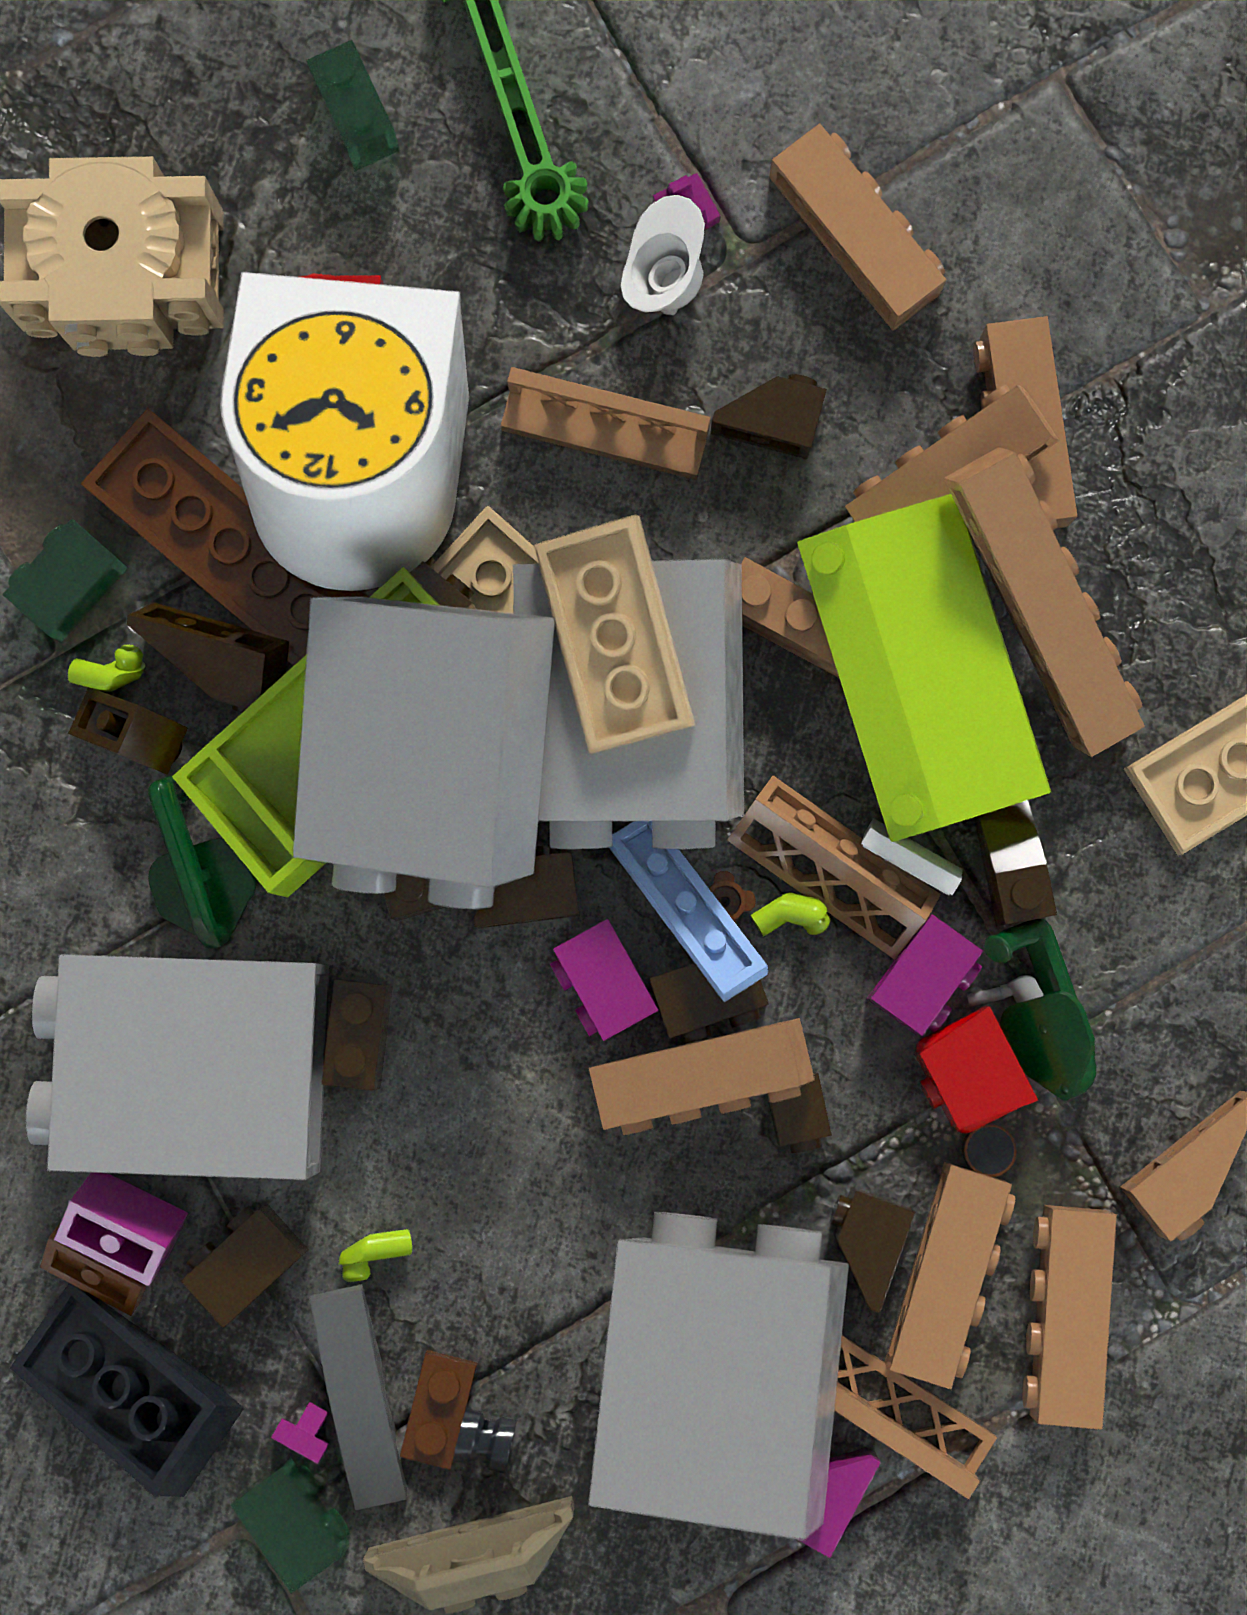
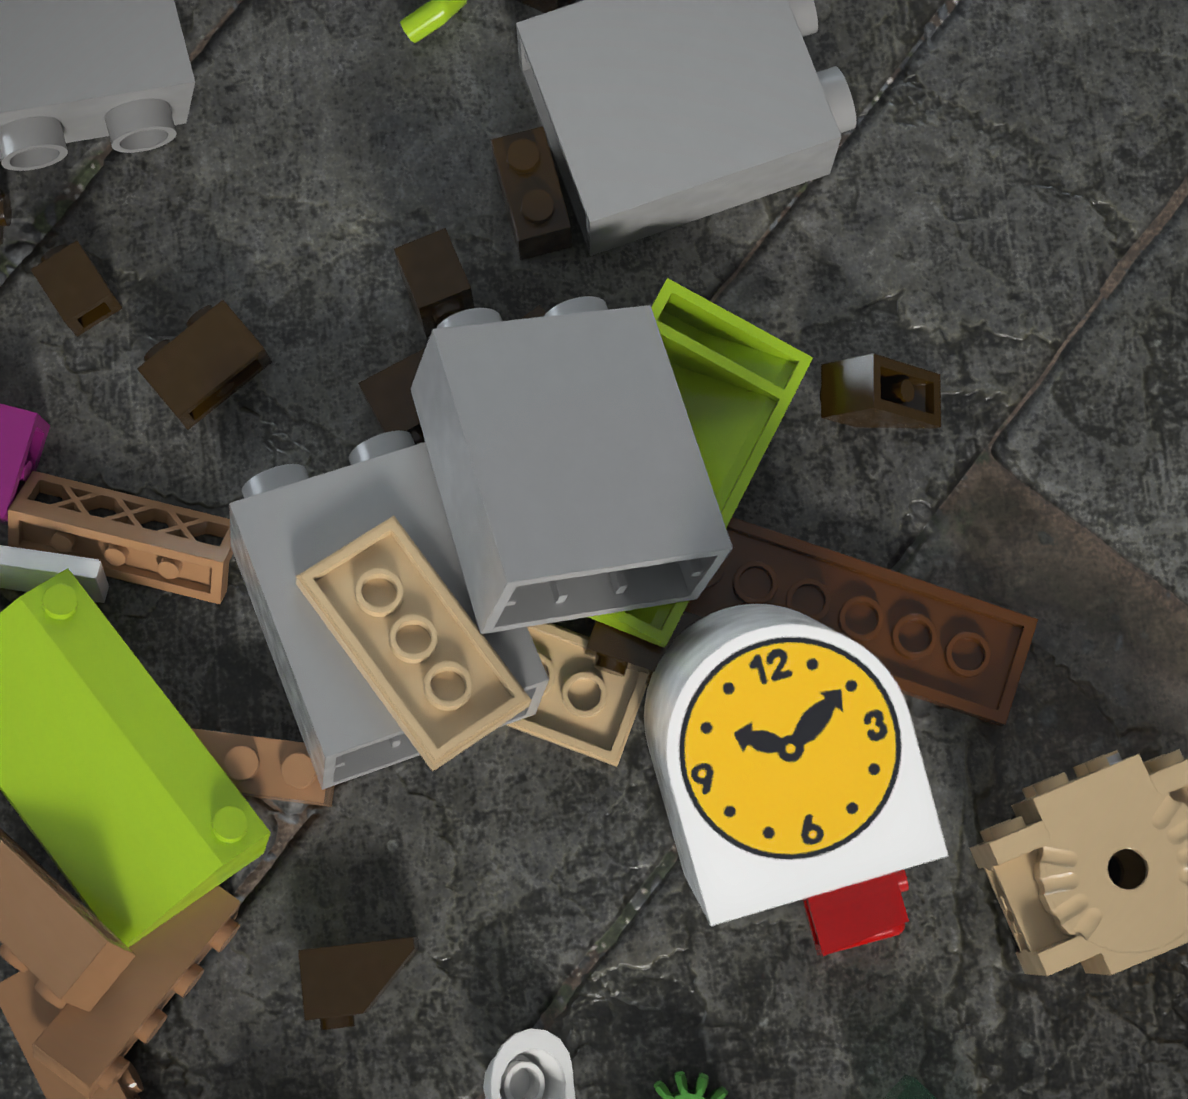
camera: 155 degrees right, 5 degrees down
(64, 580) = (1010, 517): clear green brick -> none
(112, 676) = (923, 440): lime arm -> none
(197, 884) = (753, 278): dark green piece -> none
(215, 655) = (820, 499): dark brown slope -> none
(474, 973) = (434, 279): none -> dark brown brick
(603, 980) = (311, 335): magenta brick -> none
(605, 423) = (527, 895): medium nougat fence -> none
(689, 911) = (235, 417): light blue plate -> none
(702, 1075) = (175, 275): medium nougat brick -> none
(739, 899) = (216, 446): reddish brown plate -> none
(792, 908) = (150, 480): lime arm -> none

